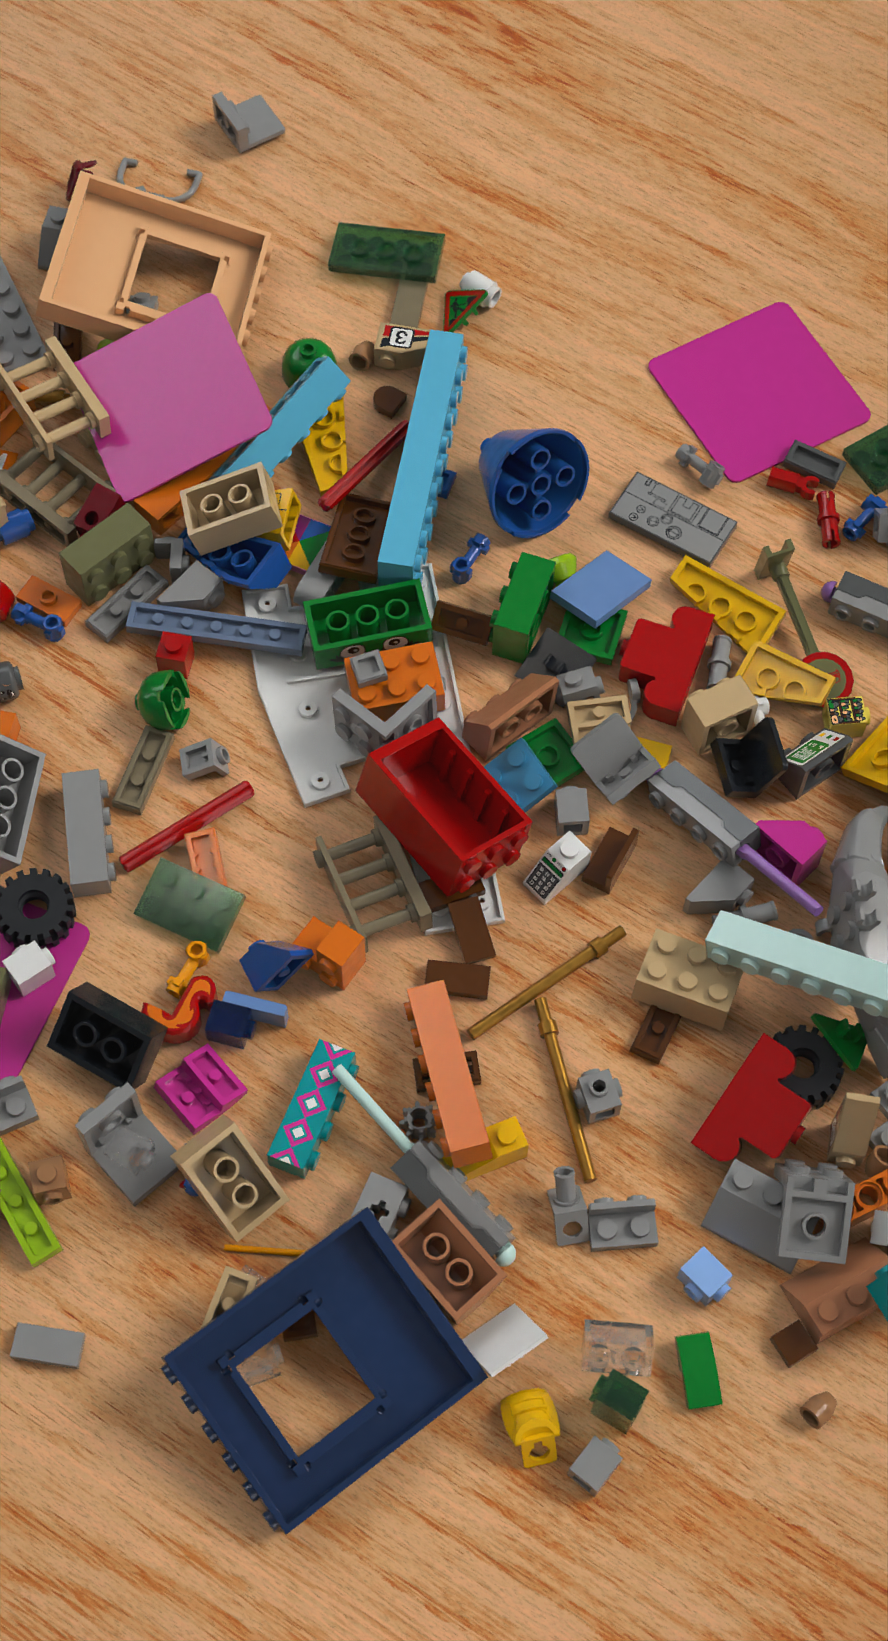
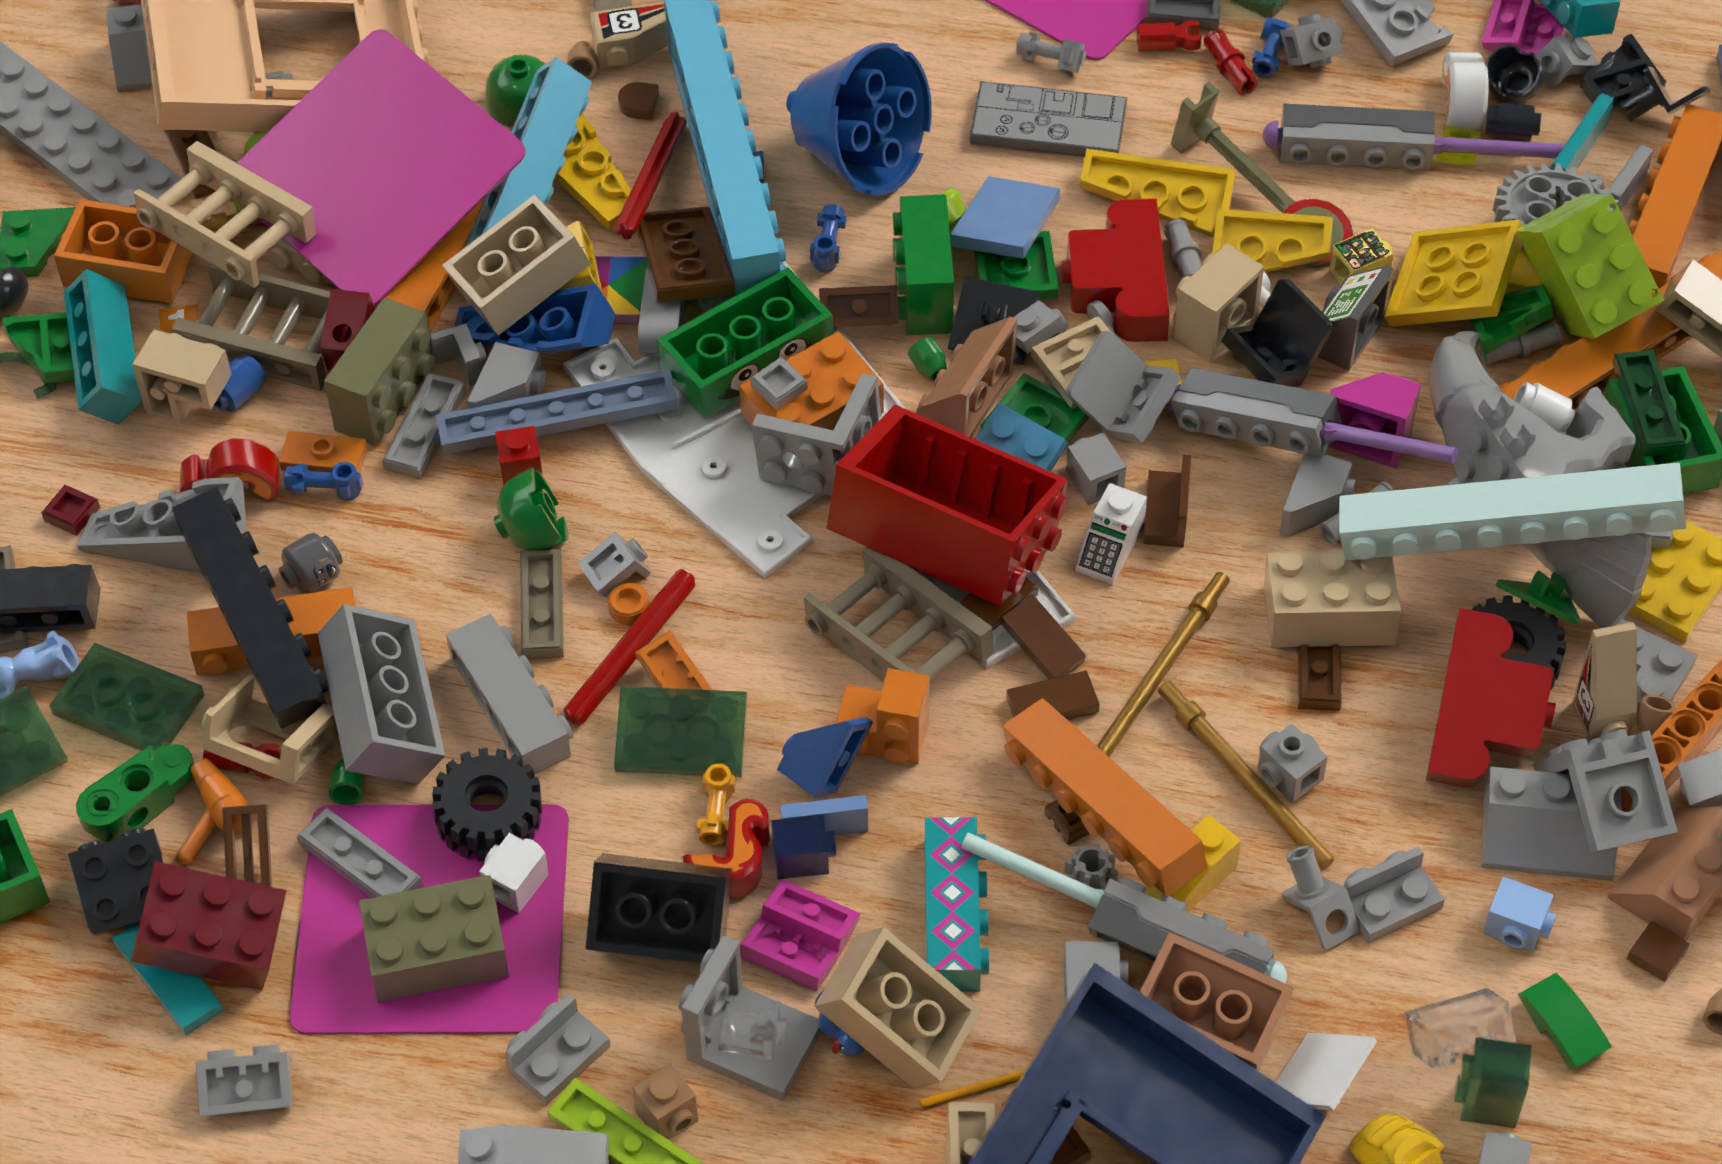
camera: 20 degrees left, 10 degrees down
(201, 791) = (627, 602): none -> orange tile
(495, 679) = (927, 357): none -> green hose

